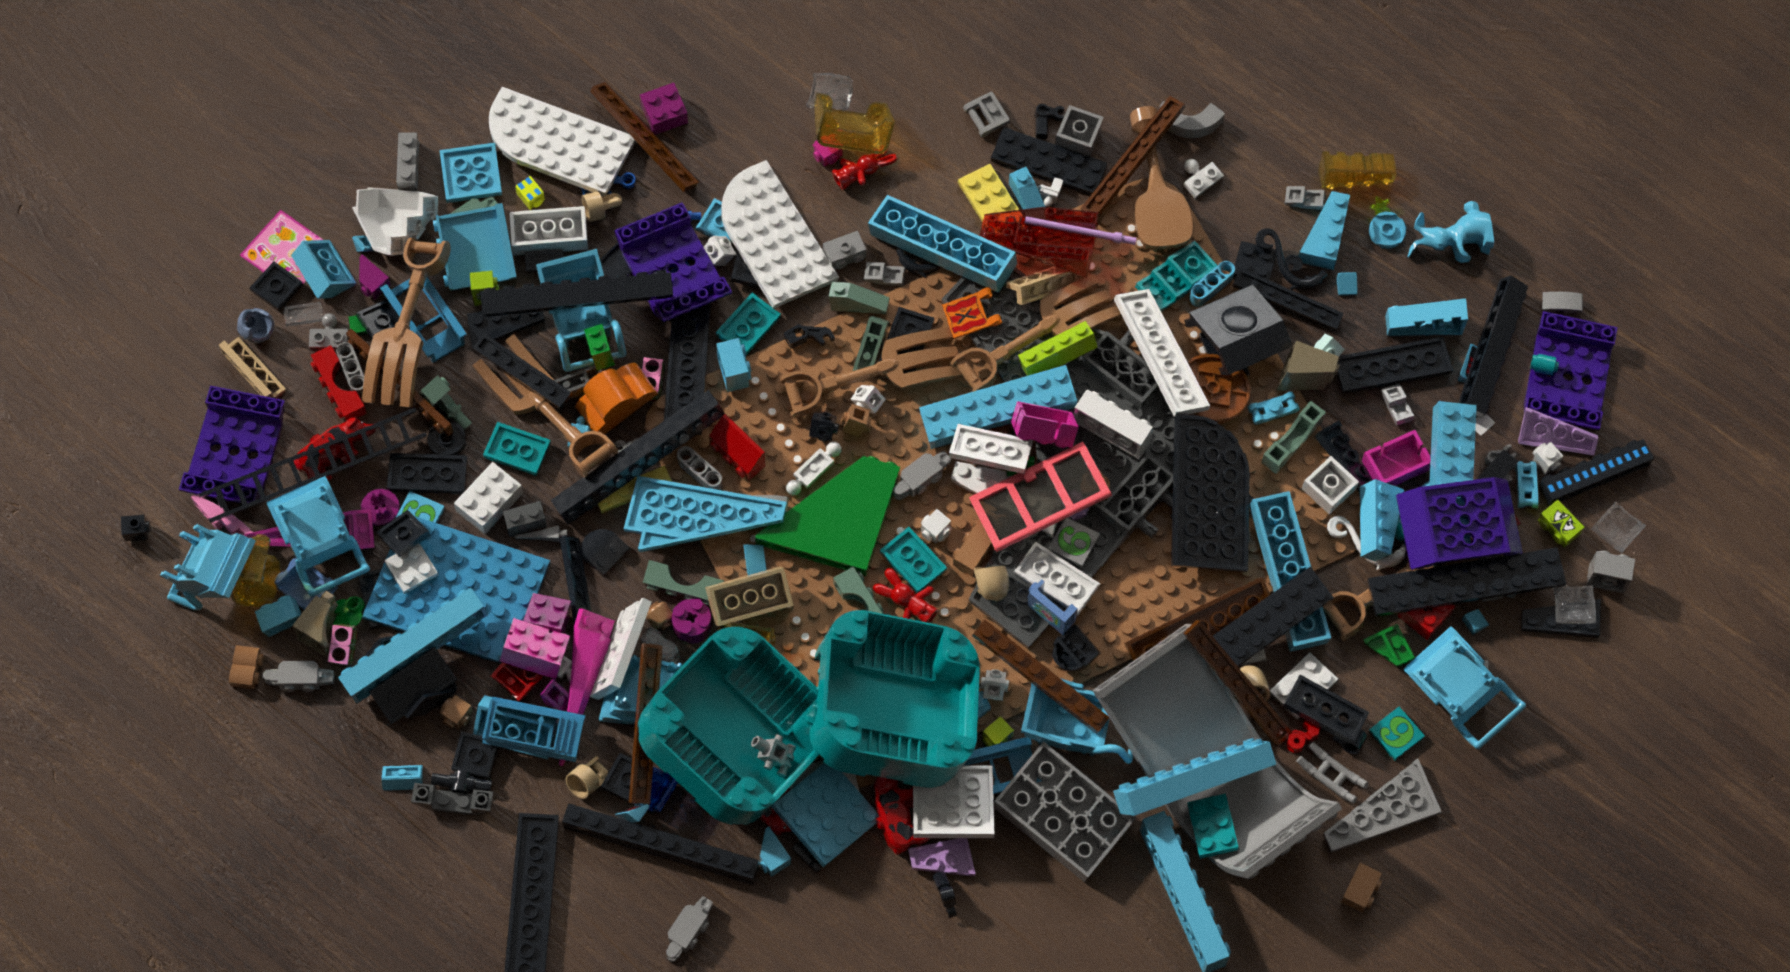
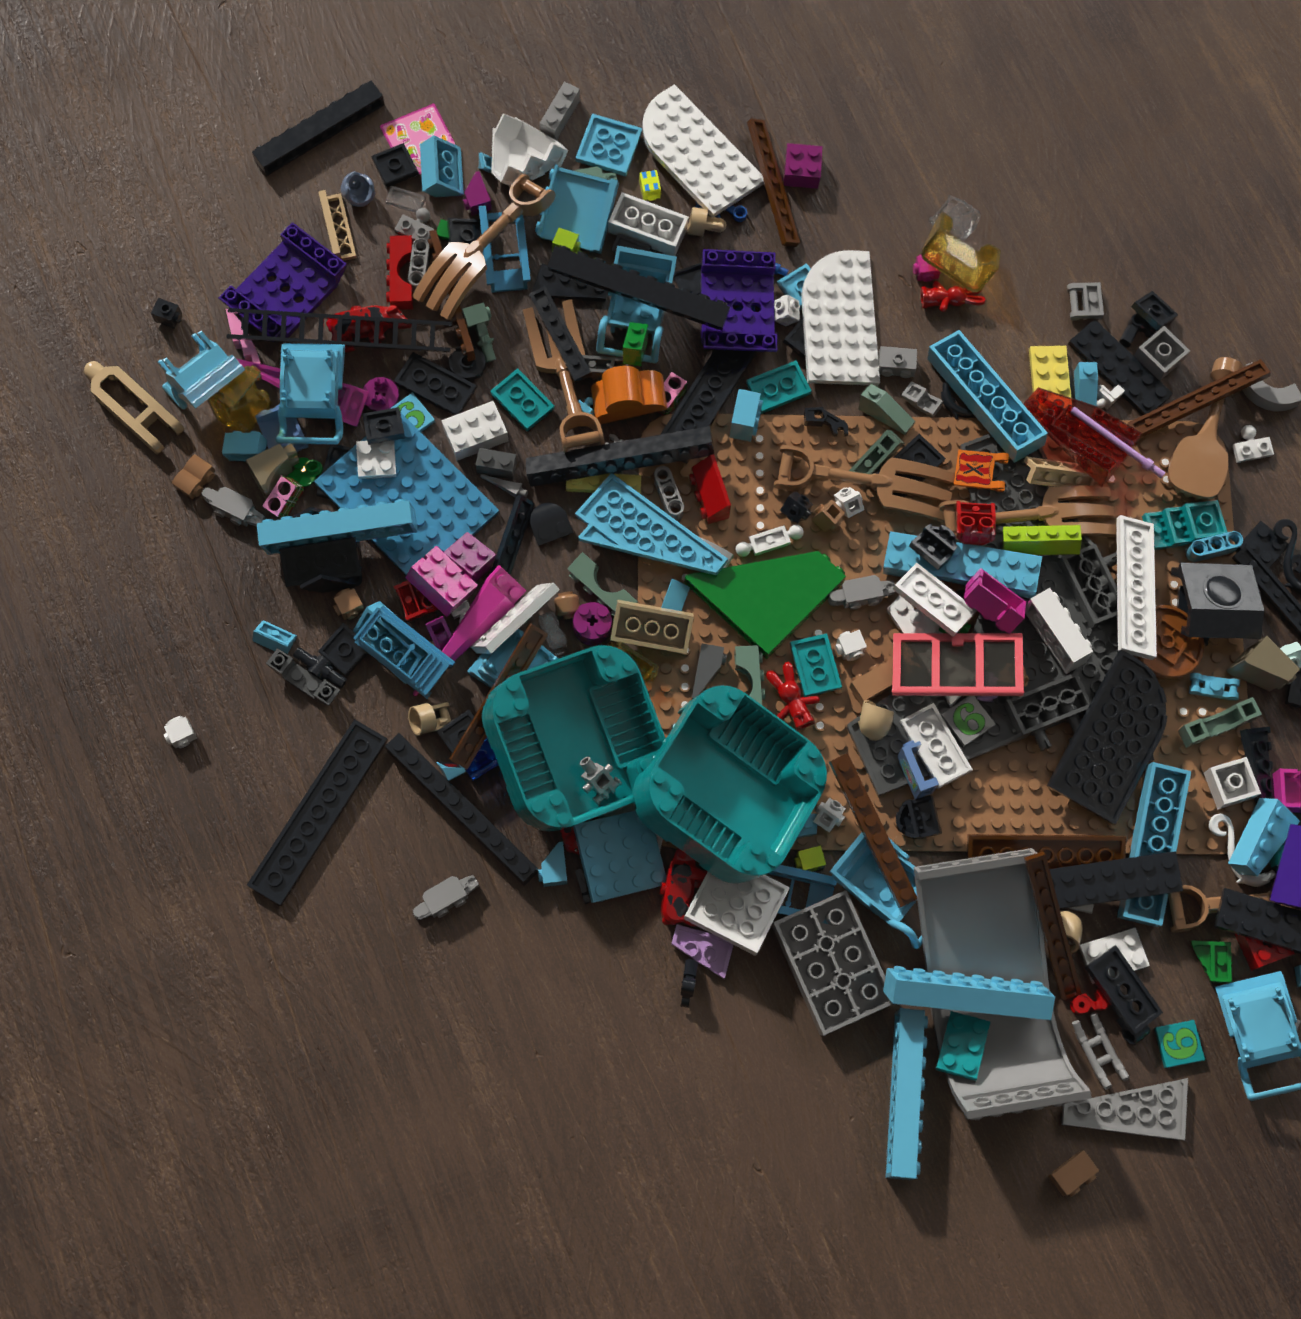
camera: 25 degrees right, 5 degrees up
(100, 616) = (138, 426): none -> tan piece
(183, 285) = (318, 128): none -> black brick
(362, 904) = (179, 732): none -> white brick
(817, 606) = (708, 667): none -> dark grey slope
(966, 400) = (935, 545): none -> black slope
(992, 363) = (975, 523): none -> red slope
(1053, 94) = (1154, 310): none -> black plate

